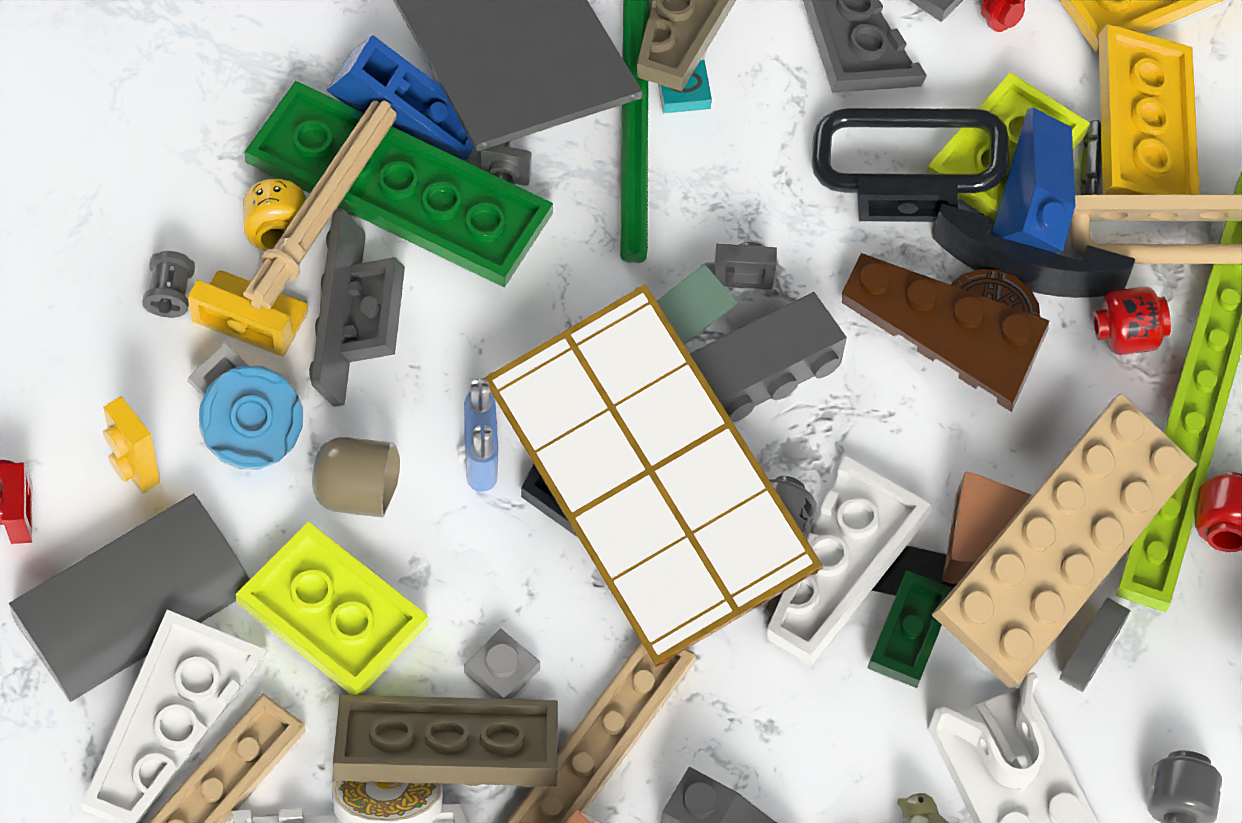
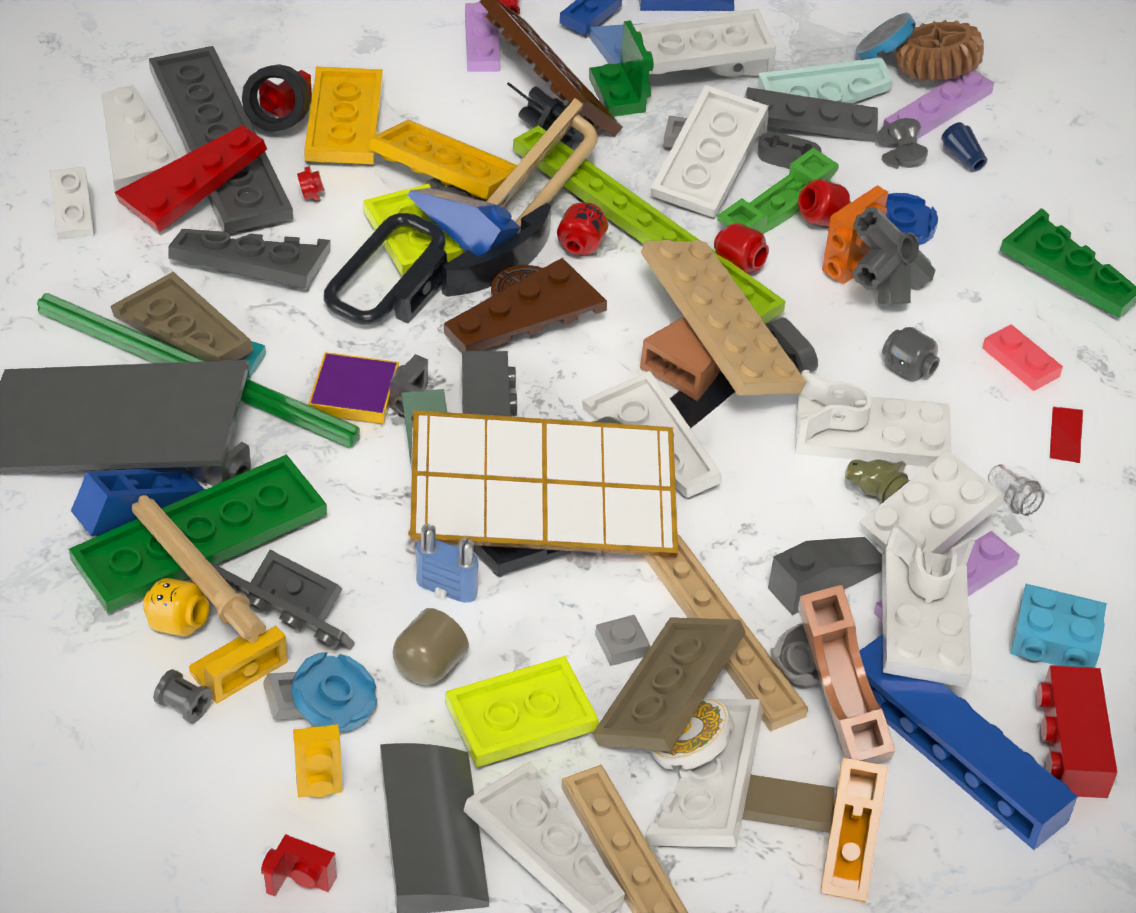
camera: 60 degrees left, 15 degrees down
(707, 211) = (353, 387): none -> dark purple tile
(909, 630) = (727, 423): dark green plate -> none

